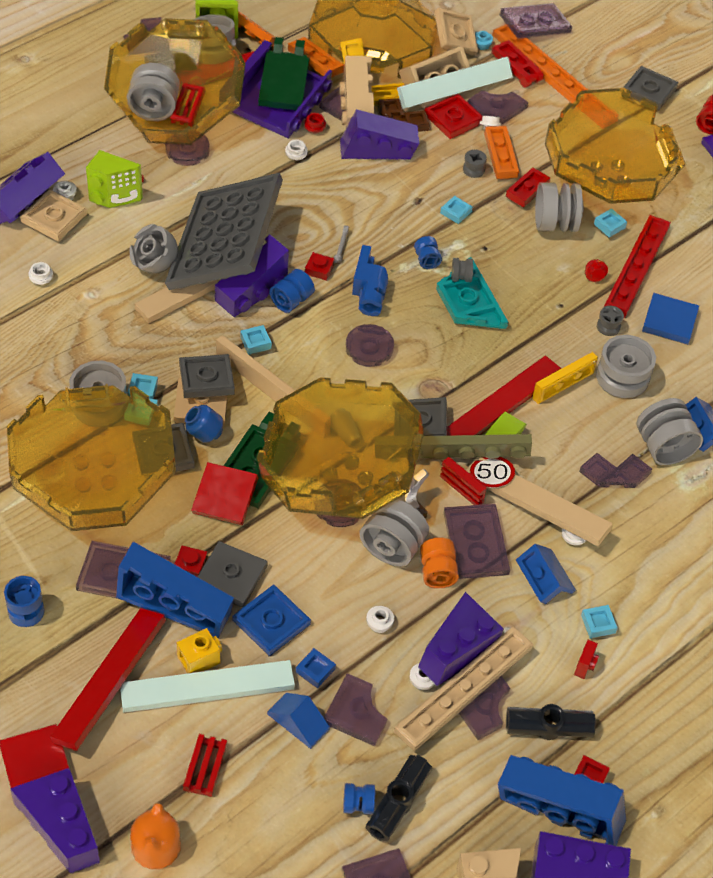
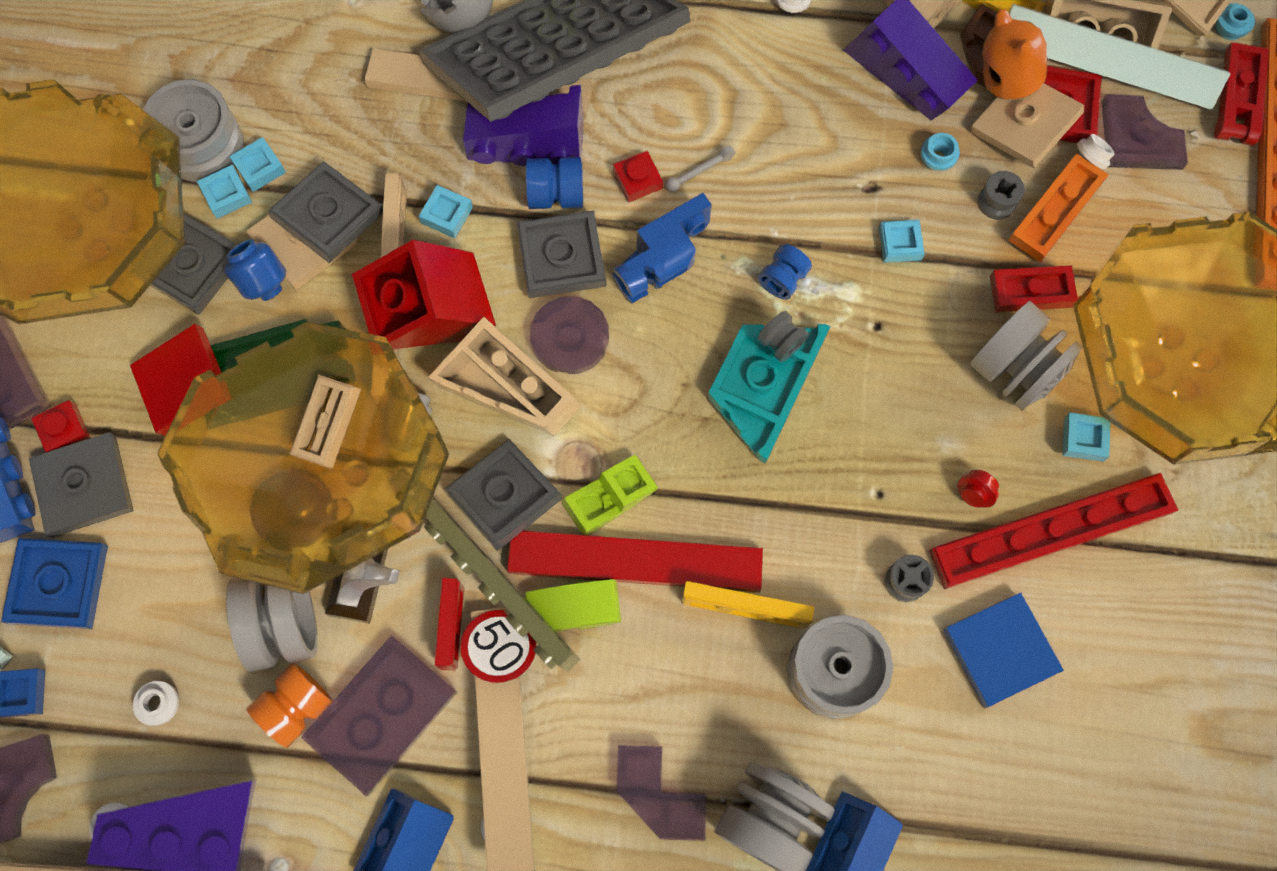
camera: 50 degrees right, 20 degrees up
(298, 364) = (422, 295): none -> red slope
(327, 317) = (561, 254): none -> dark grey plate
(329, 463) = (331, 424): none -> tan tile
(377, 367) = (505, 380): none -> tan wedge
(424, 100) = (1017, 55): none -> orange piece
(431, 165) = (943, 143): none -> medium azure plate
(451, 128) = (1028, 125): none -> tan plate
(462, 387) = (610, 495): none -> lime slope

